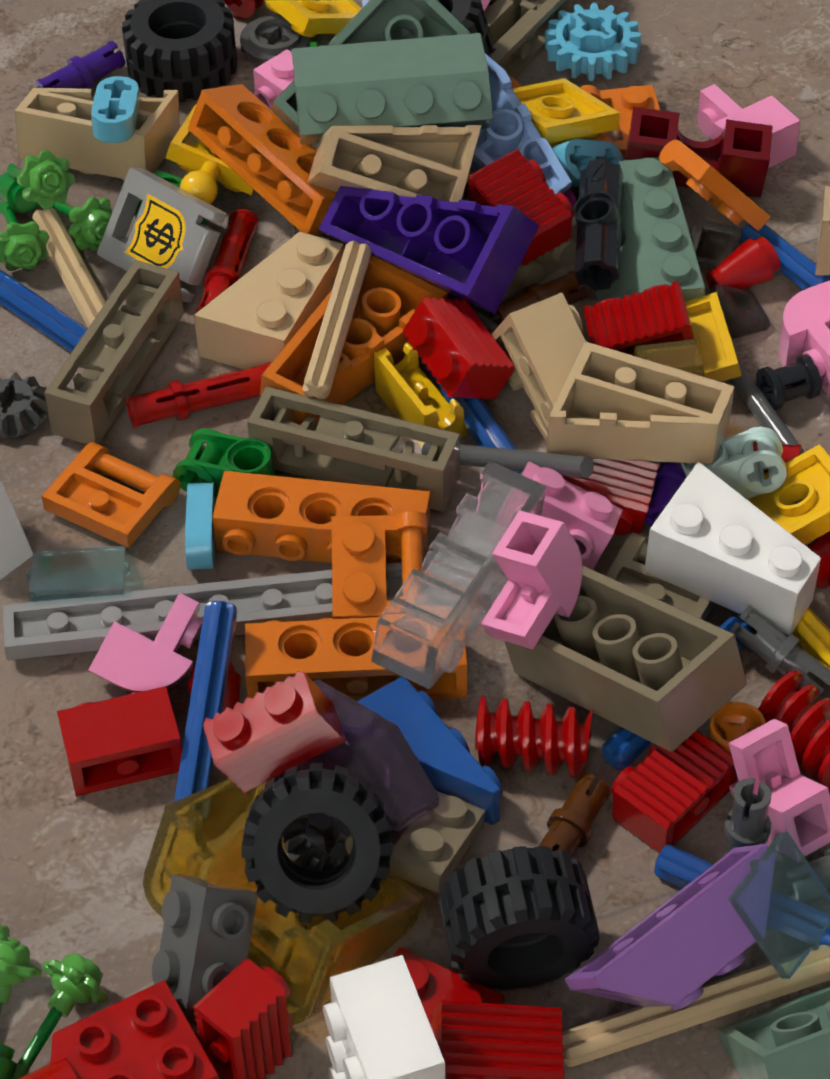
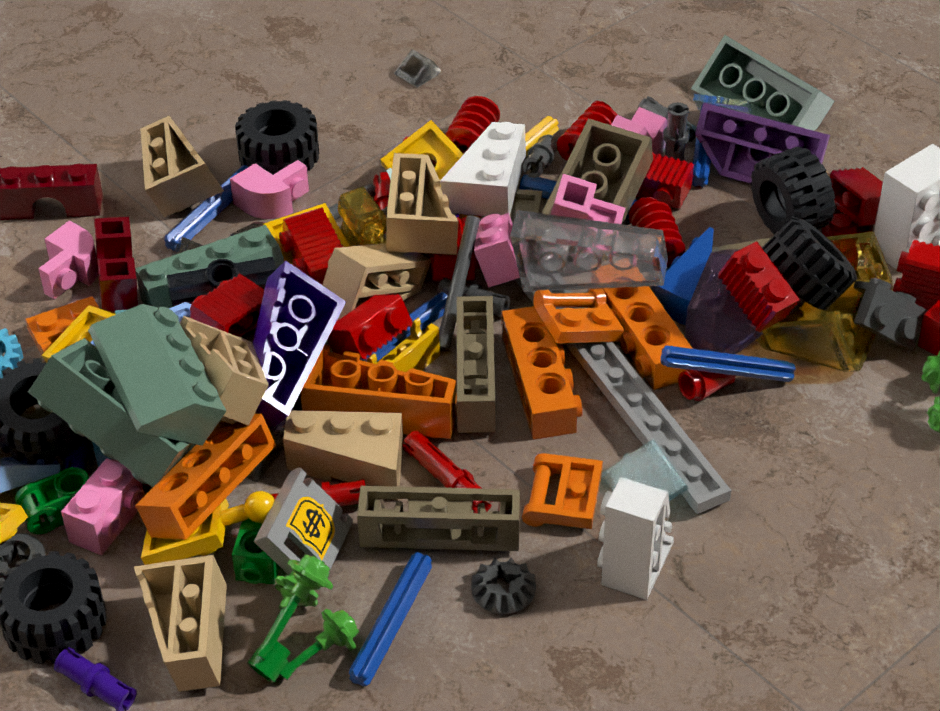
camera: 110 degrees left, 5 degrees down
(70, 265) = (345, 596): tan axle -> none
(115, 109) = (191, 577): medium azure beam -> none
(120, 740) = (765, 410): red brick -> none
(144, 664) = (702, 408): bright pink brick -> none
(199, 531) = (571, 430): medium azure beam -> none
(221, 454) = (513, 430): green piece -> none
(336, 320) = (382, 373): tan axle -> none
(570, 825) = (704, 216): reddish brown pin -> none
(712, 185) = (164, 236): orange plate -> none
(746, 266) = (208, 229): red cone -> none
(789, 381) = (312, 192): black bush -> none

